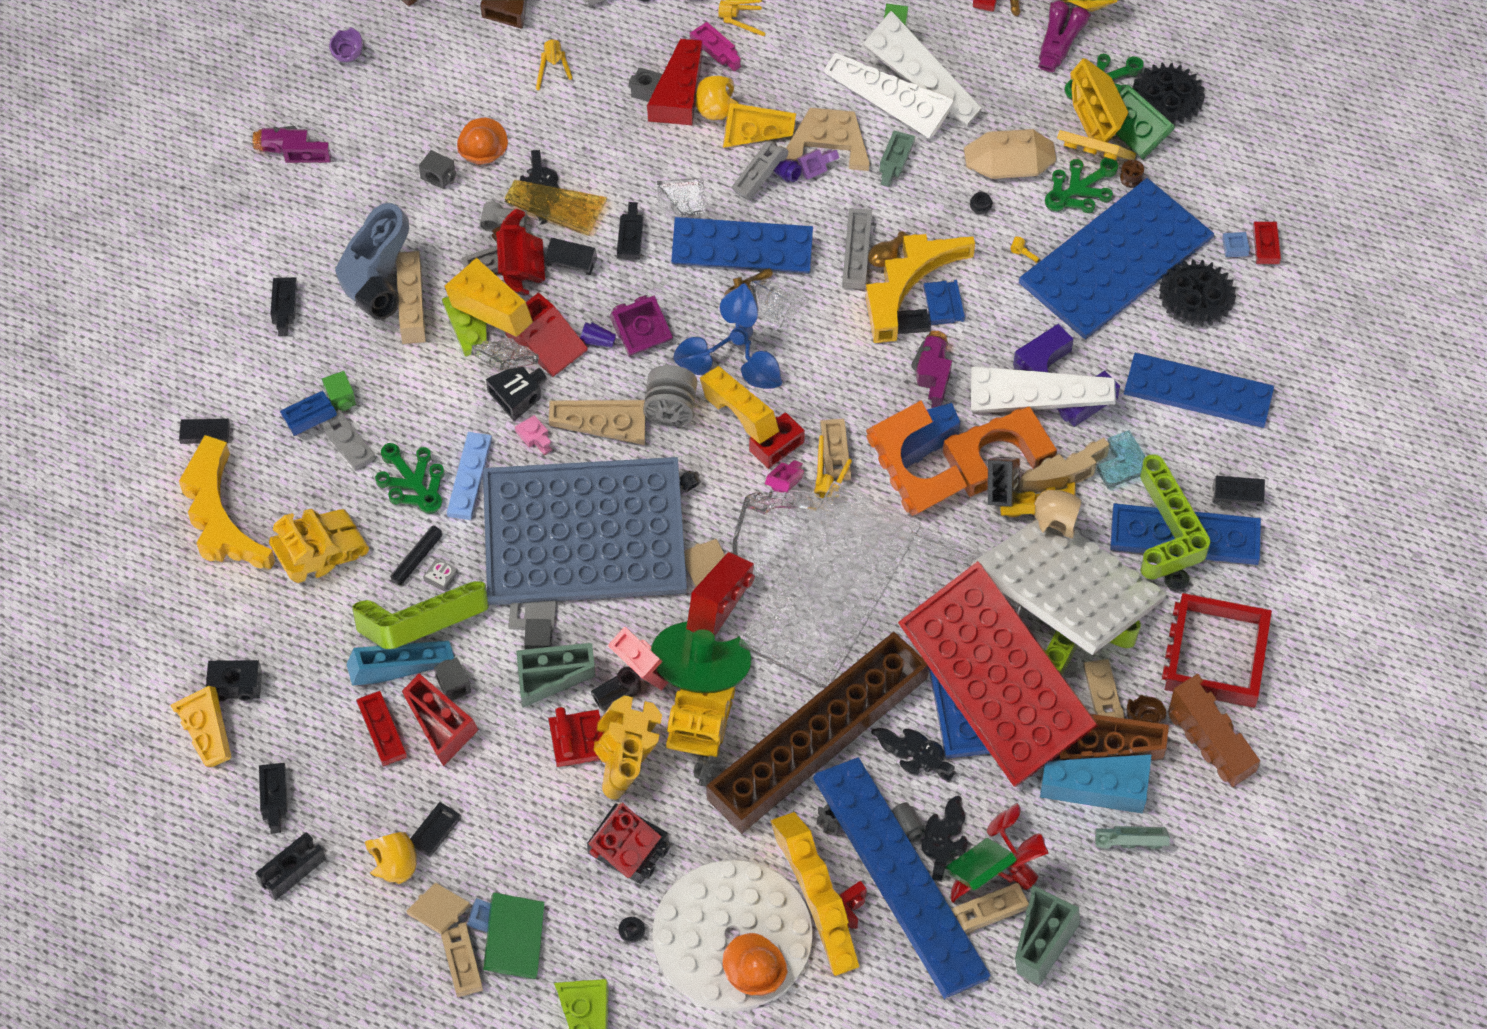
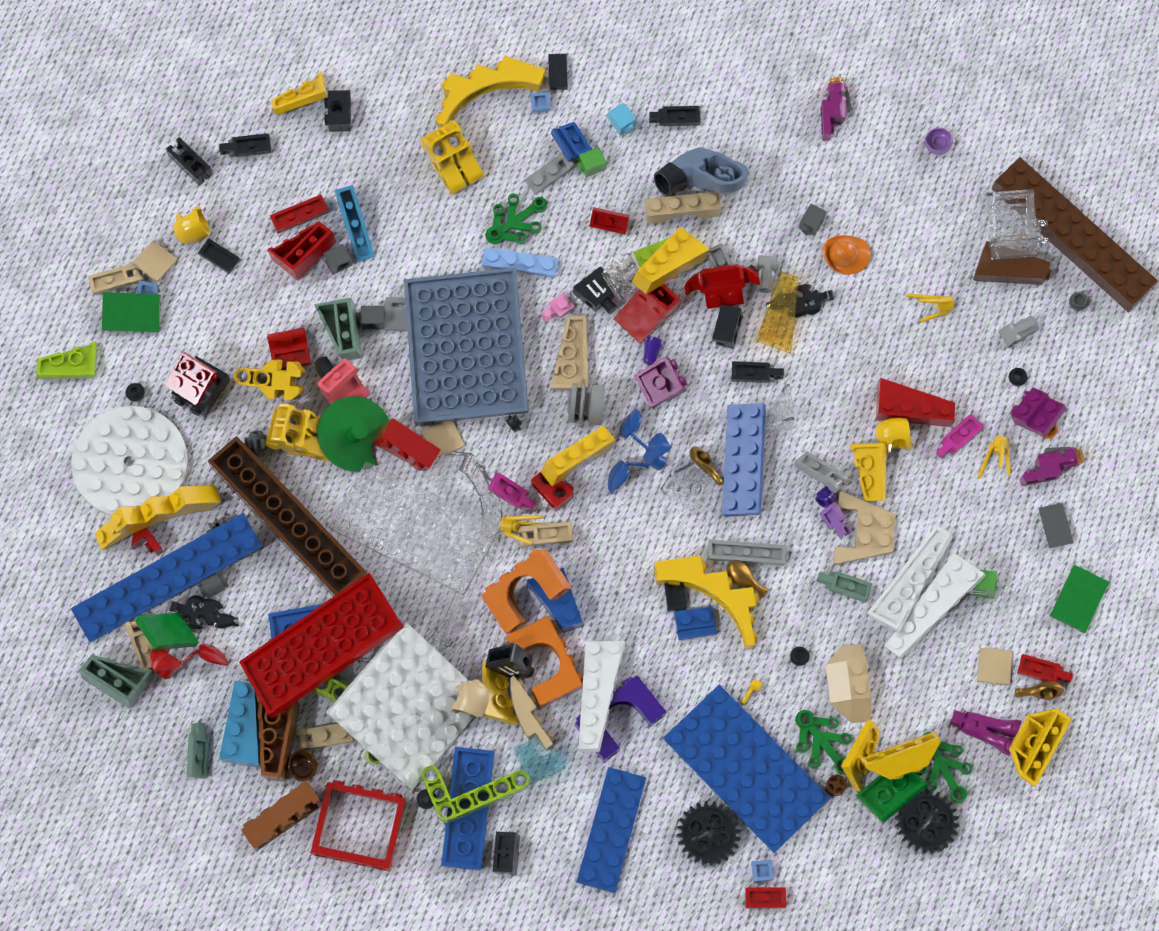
camera: 85 degrees right, 15 degrees up
(247, 448) = (540, 102): none -> medium blue plate
(282, 359) = (622, 119): none -> medium azure brick
(416, 555) = (447, 228): black axle -> none
(421, 375) = (609, 220): none -> red plate
(421, 619) = (382, 234): lime beam -> none
(440, 574) = (431, 247): tile -> none
(643, 84) = (913, 371): dark grey brick -> none
(754, 965) = (98, 475): orange hat -> none
(925, 752) = (281, 593): black piece -> none
(932, 366) = (624, 609): magenta plate -> none
(985, 30) = (994, 666): none -> tan piece

